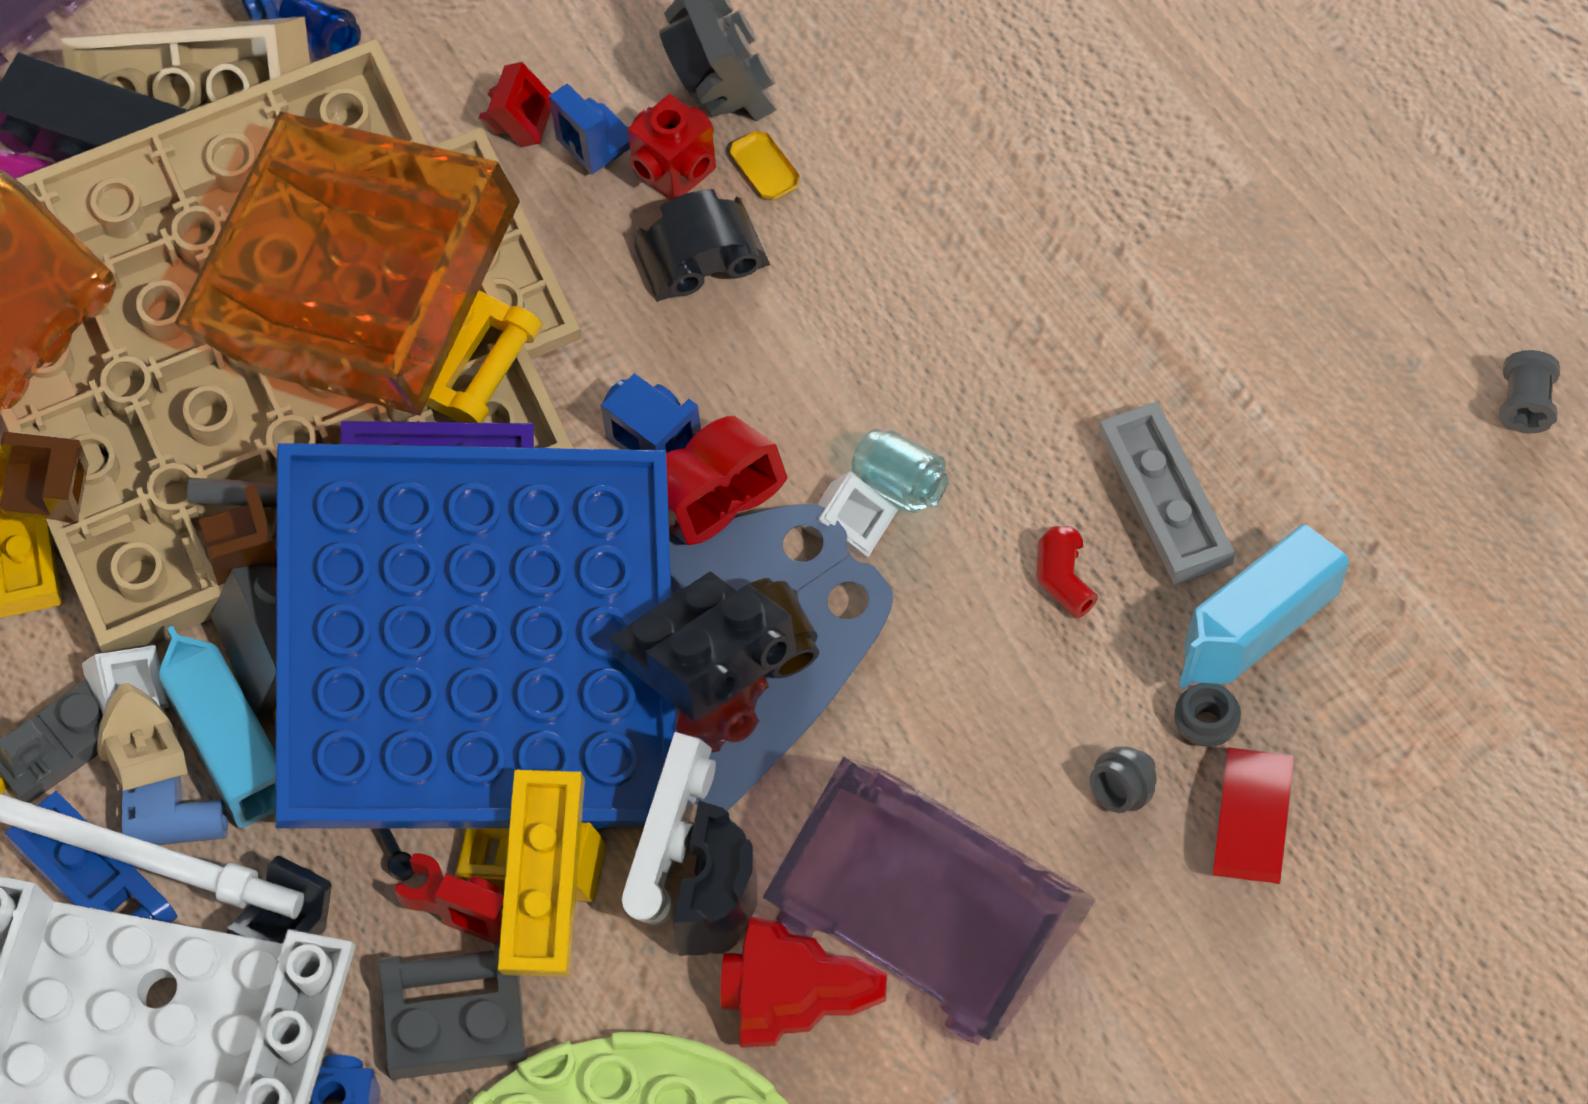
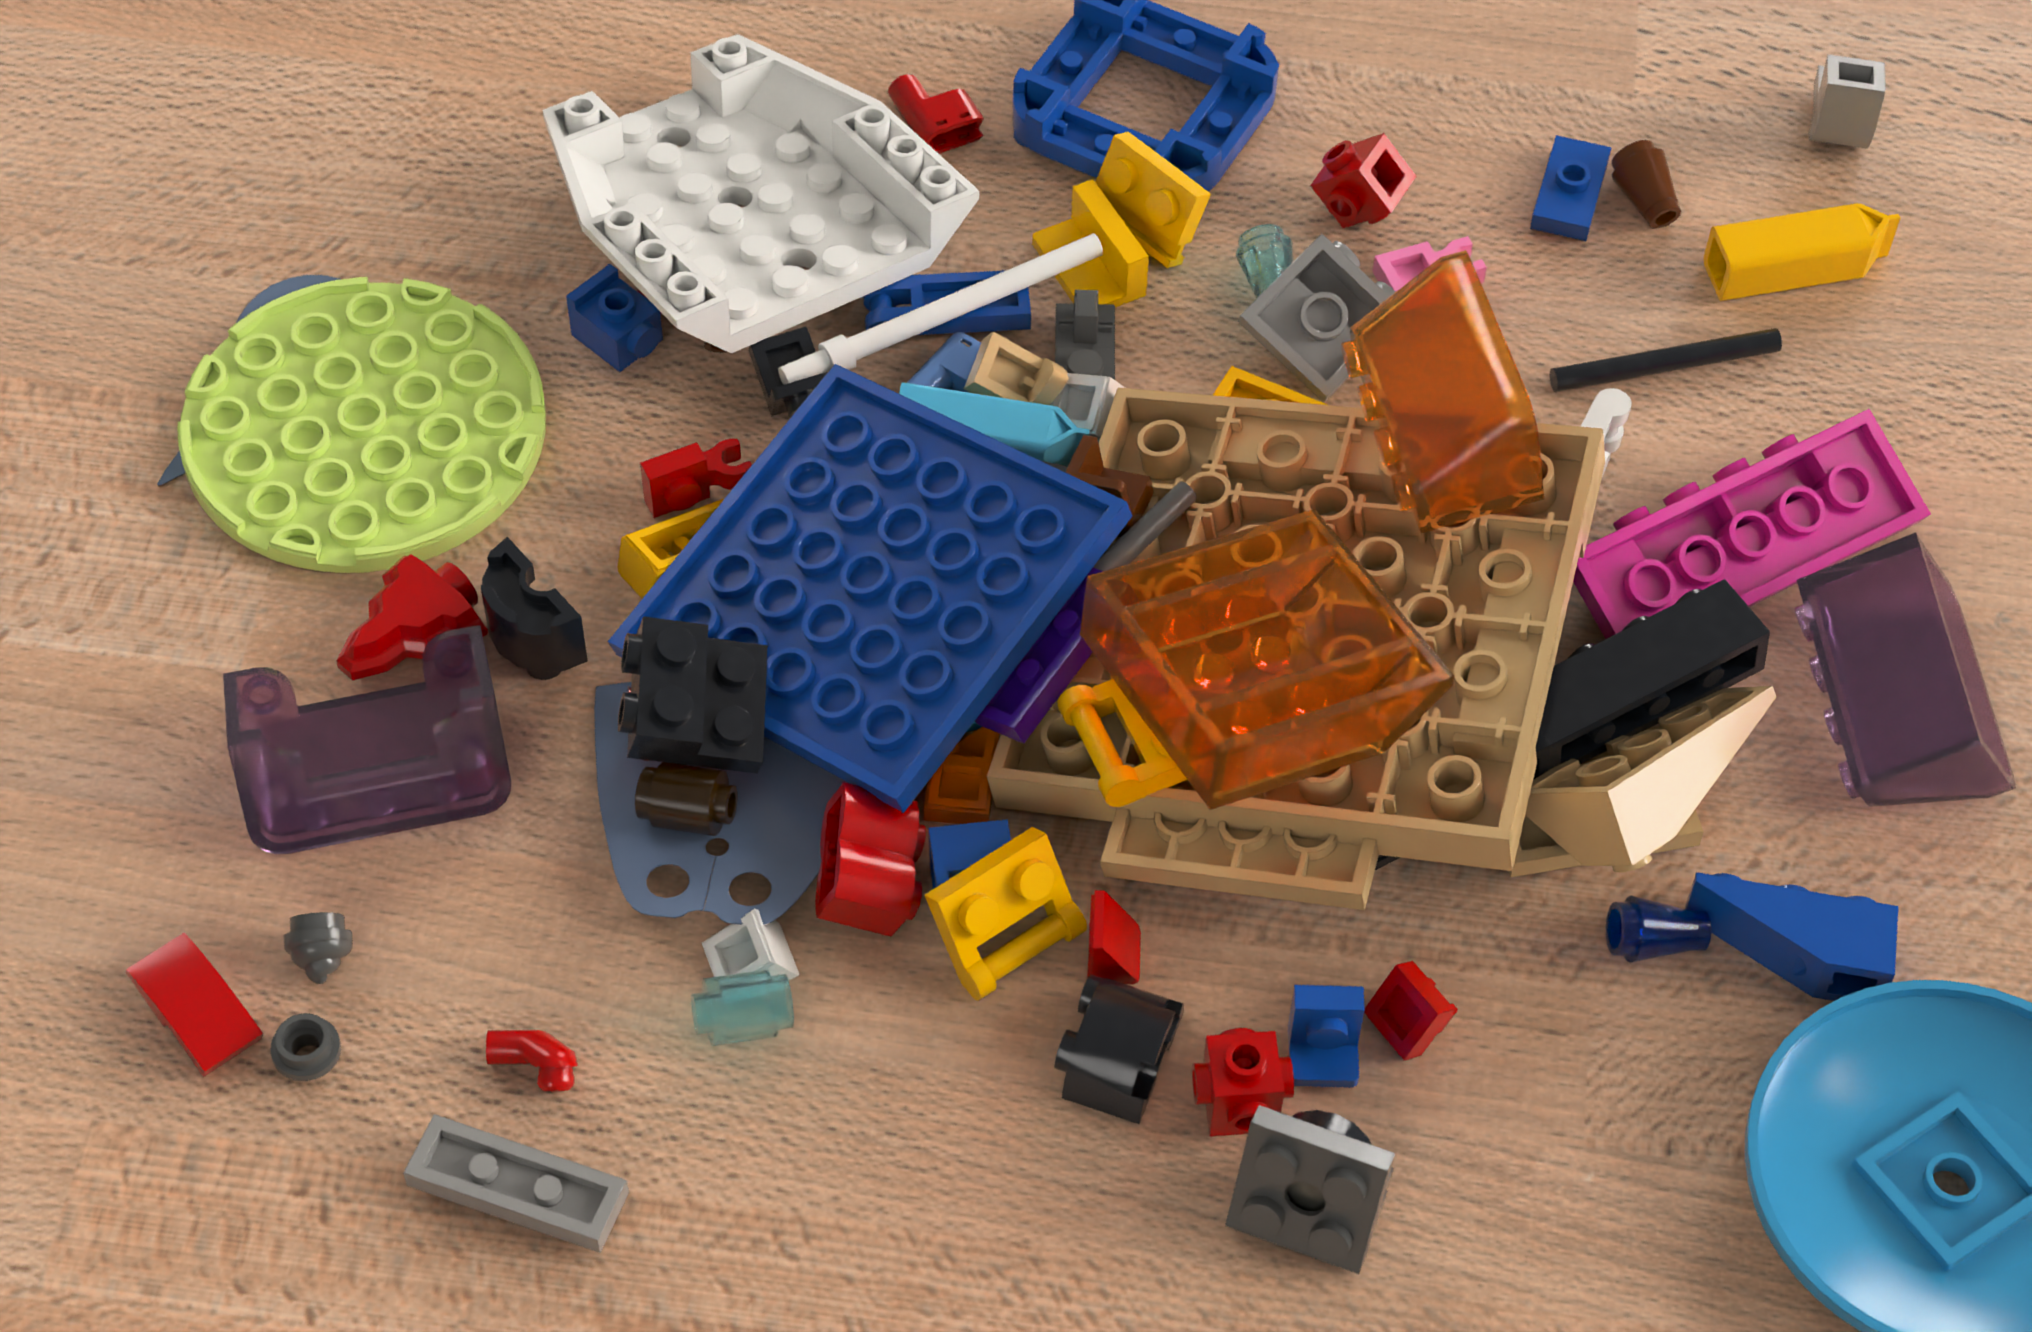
camera: 125 degrees right, 5 degrees down
(43, 477) = (1277, 402): reddish brown panel -> none
(450, 1031) = (609, 425): dark grey plate -> none
(541, 873) = (640, 505): yellow plate -> none
(630, 311) = (1113, 941): none -> red slope
(667, 829) = (586, 590): white plate -> none
(687, 363) = (994, 897): none -> yellow plate
(765, 165) = (1172, 1170): yellow piece -> none
(1262, 607) = (329, 1137): medium azure piece -> none

